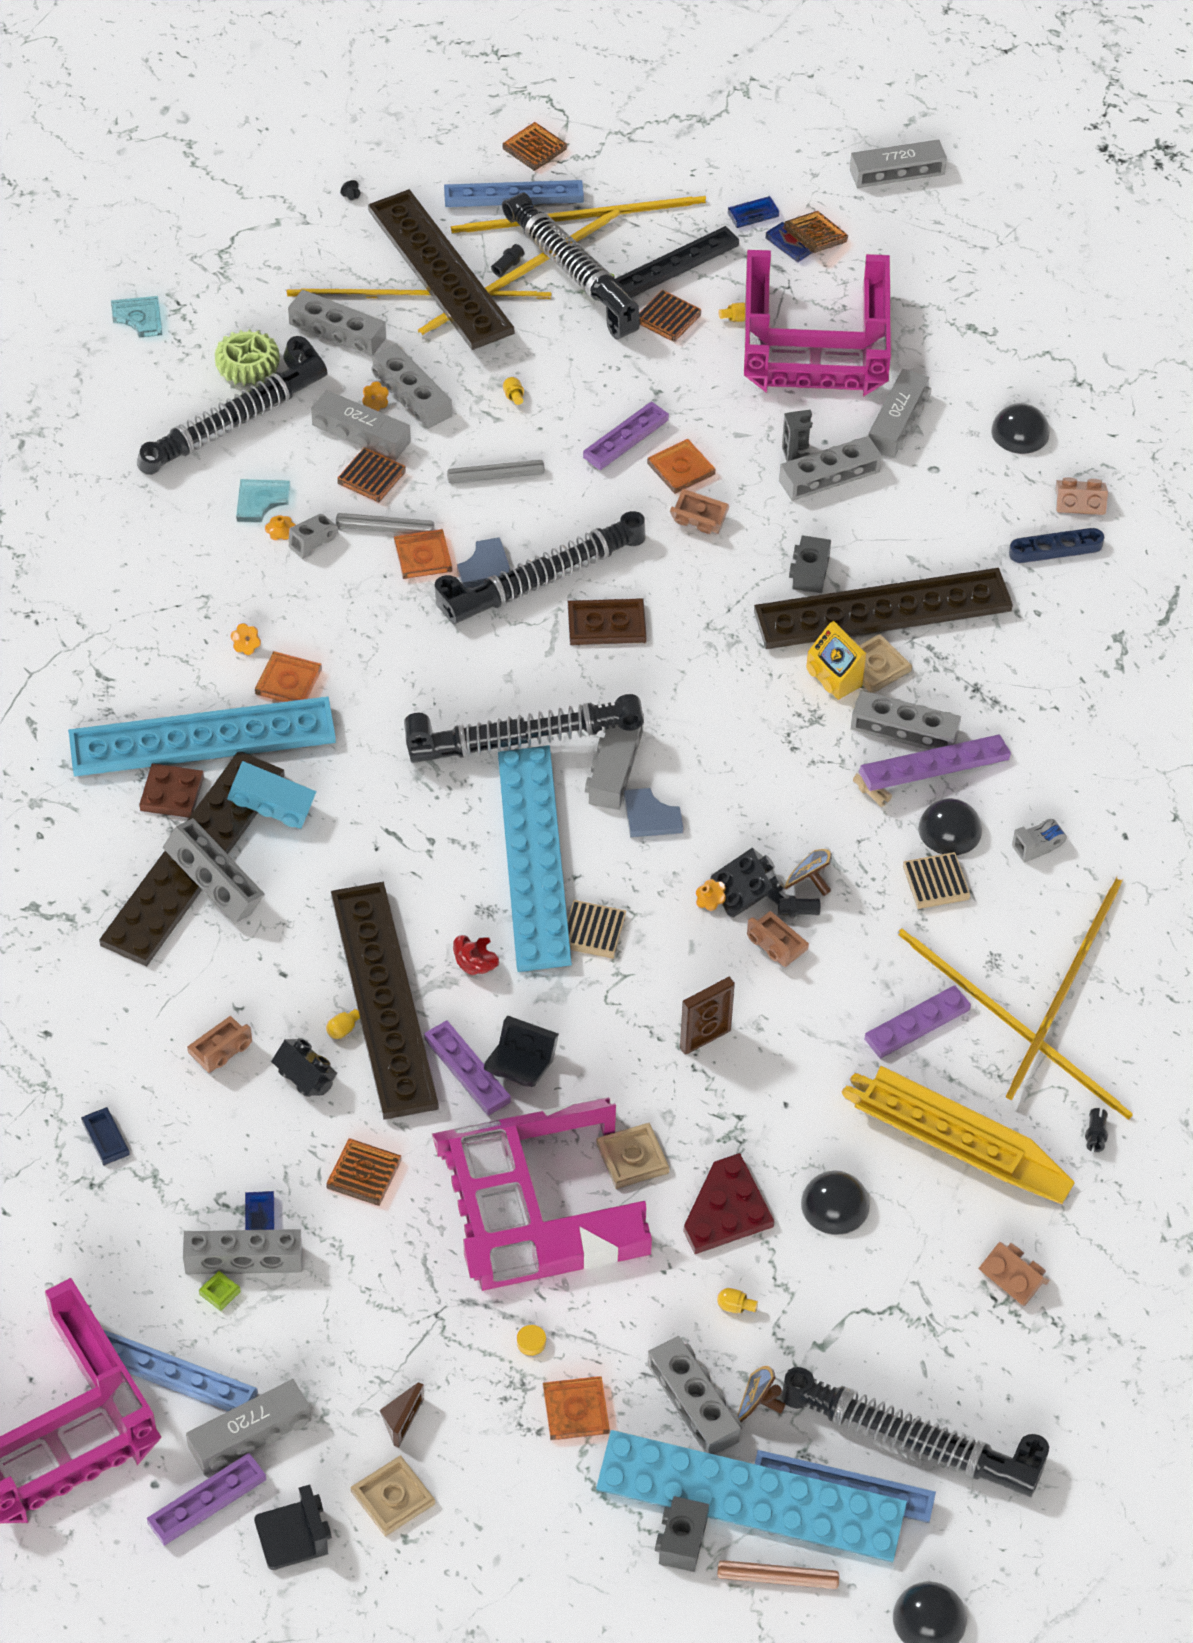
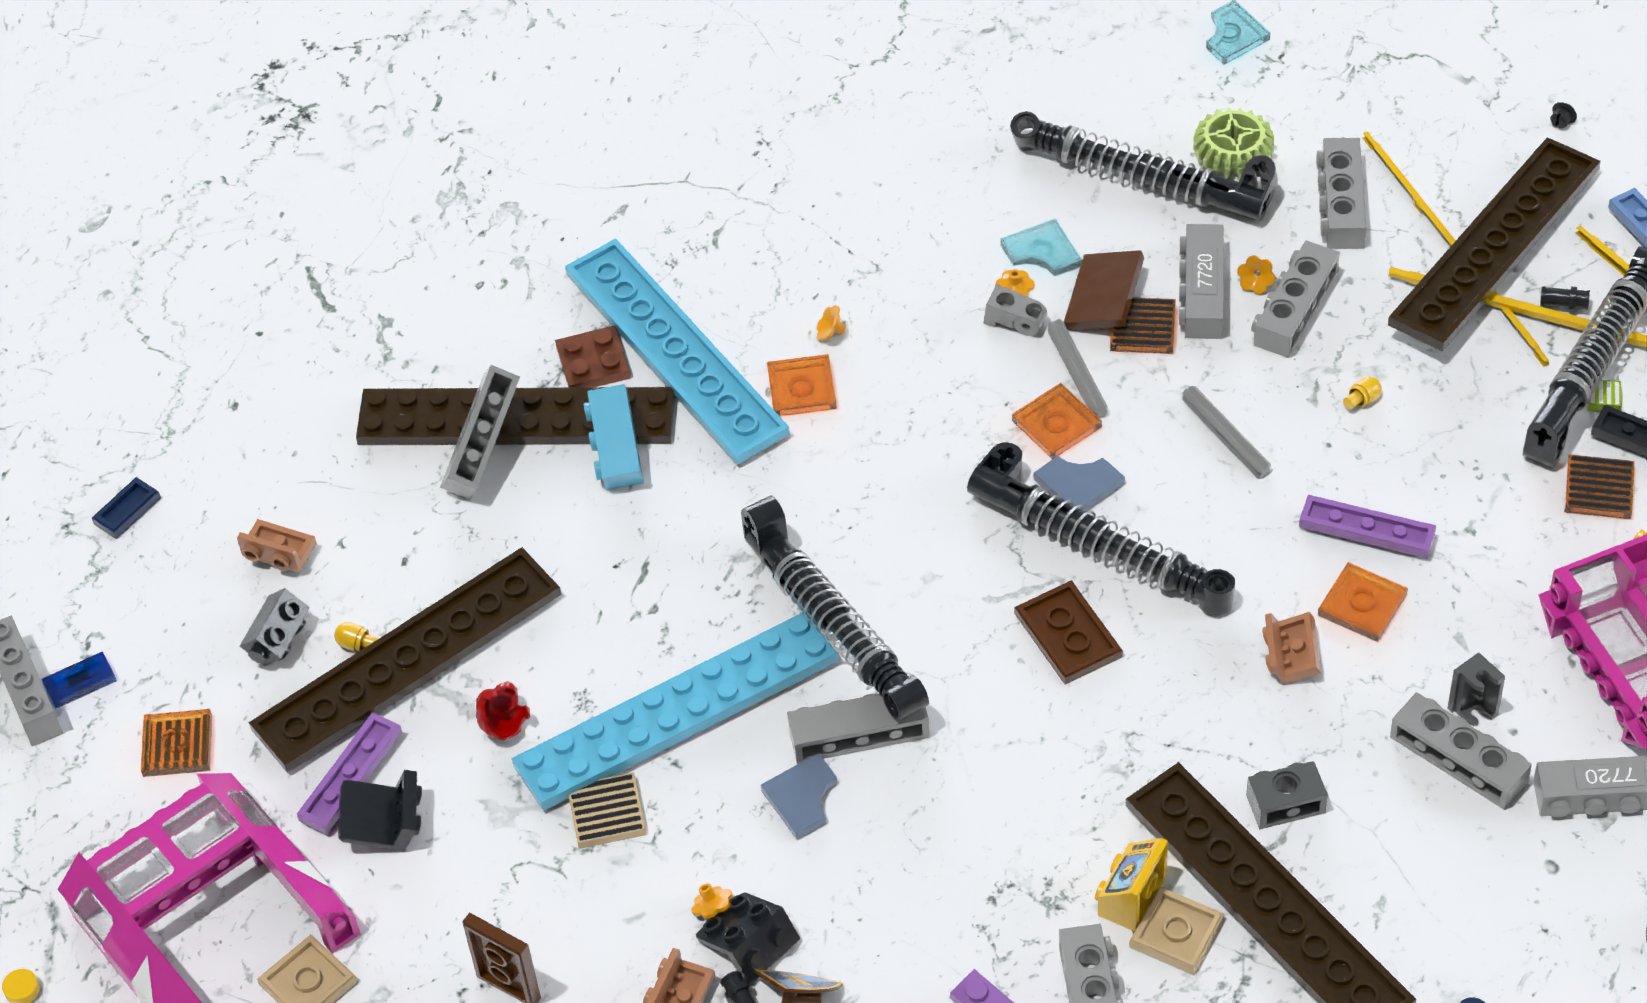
camera: 70 degrees right, 0 degrees up
(329, 478) = (1104, 290): none -> reddish brown tile

